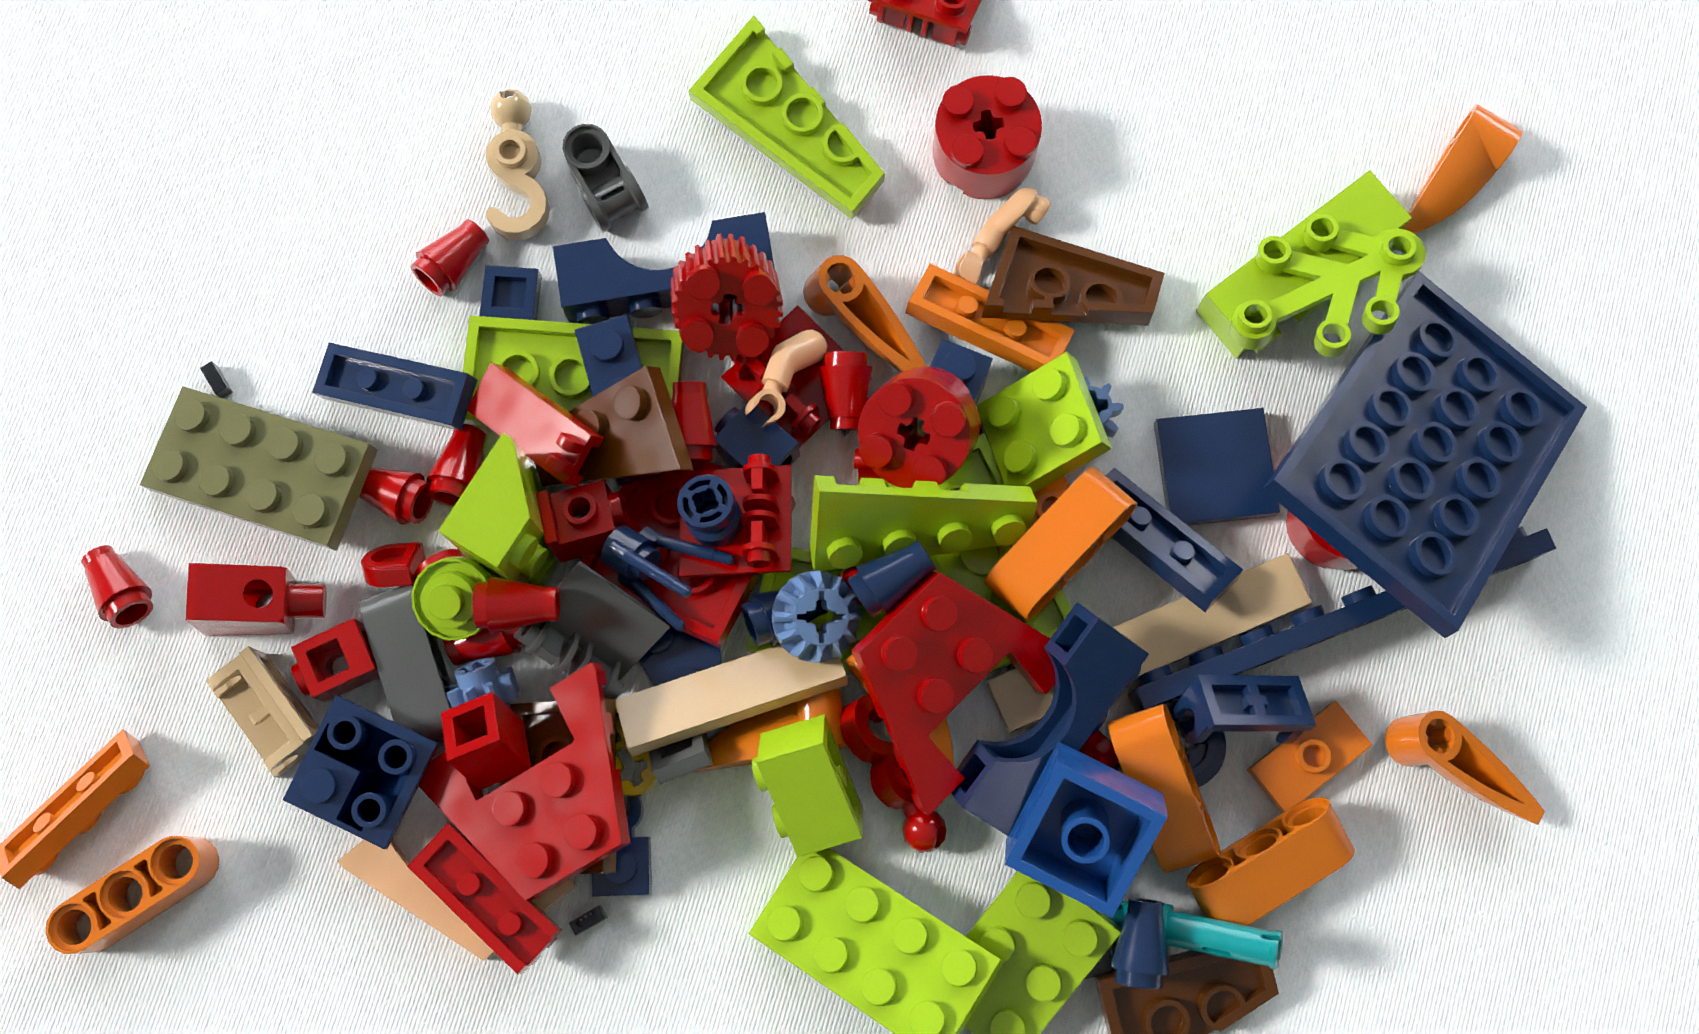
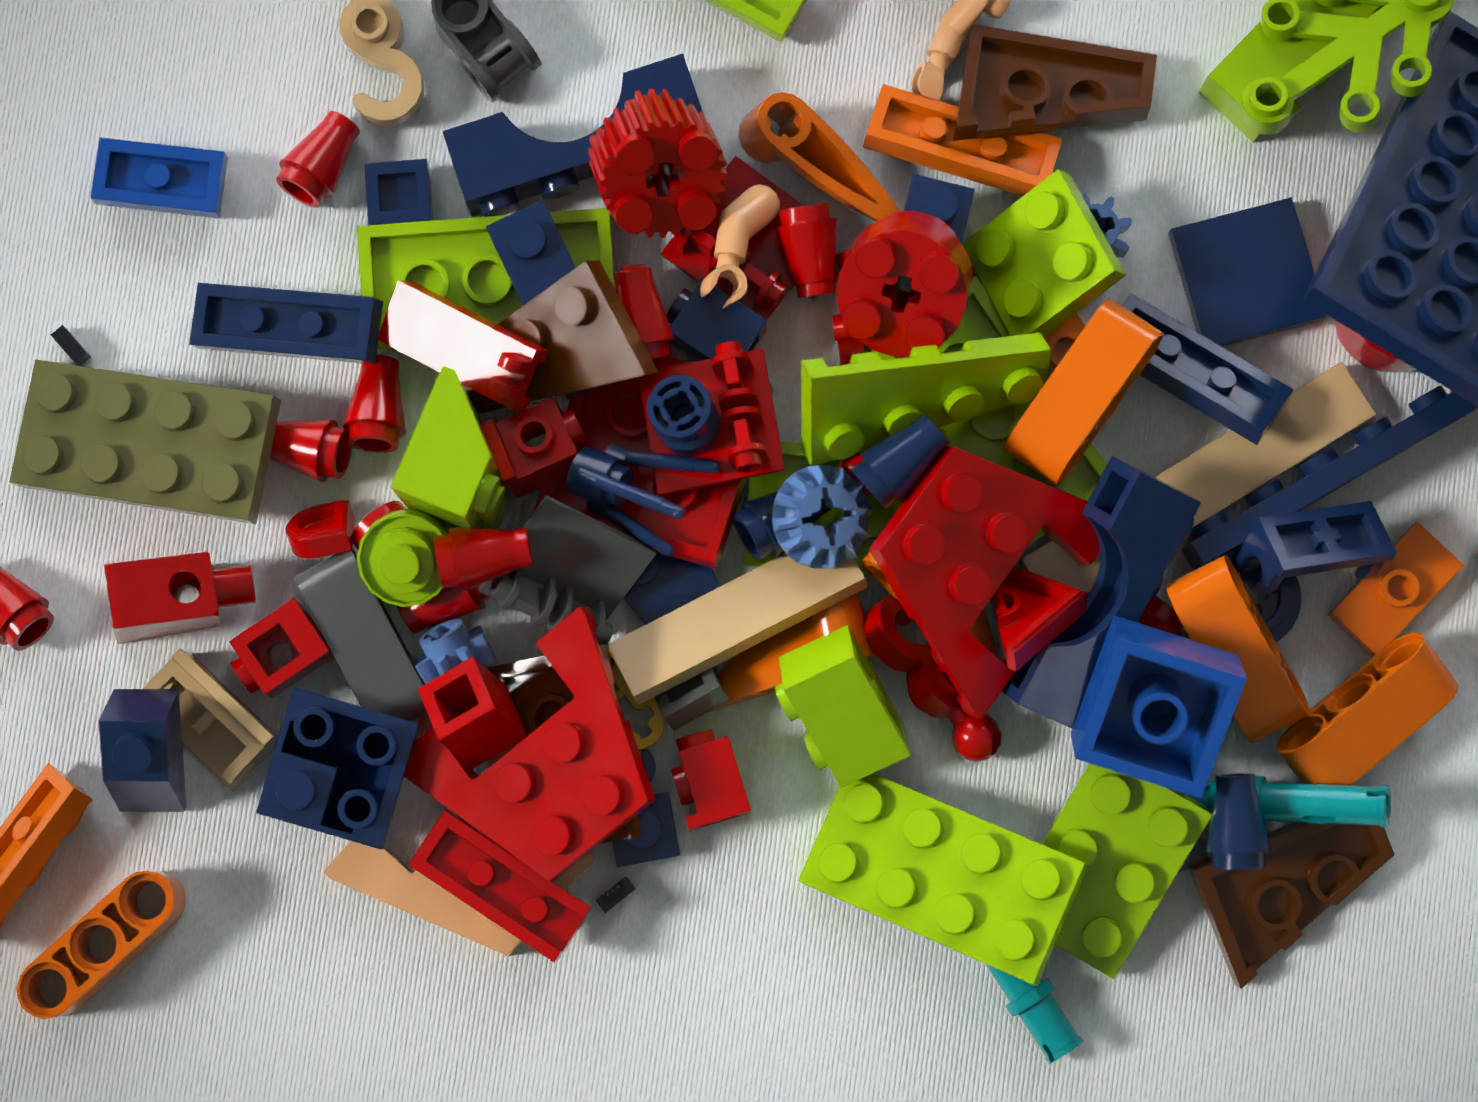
camera: 10 degrees left, 5 degrees up
(198, 729) = (143, 750): none -> dark blue slope
(315, 253) = (159, 177): none -> blue plate
(685, 832) = (709, 779): none -> red brick
(988, 728) = (1033, 613): none -> red tile

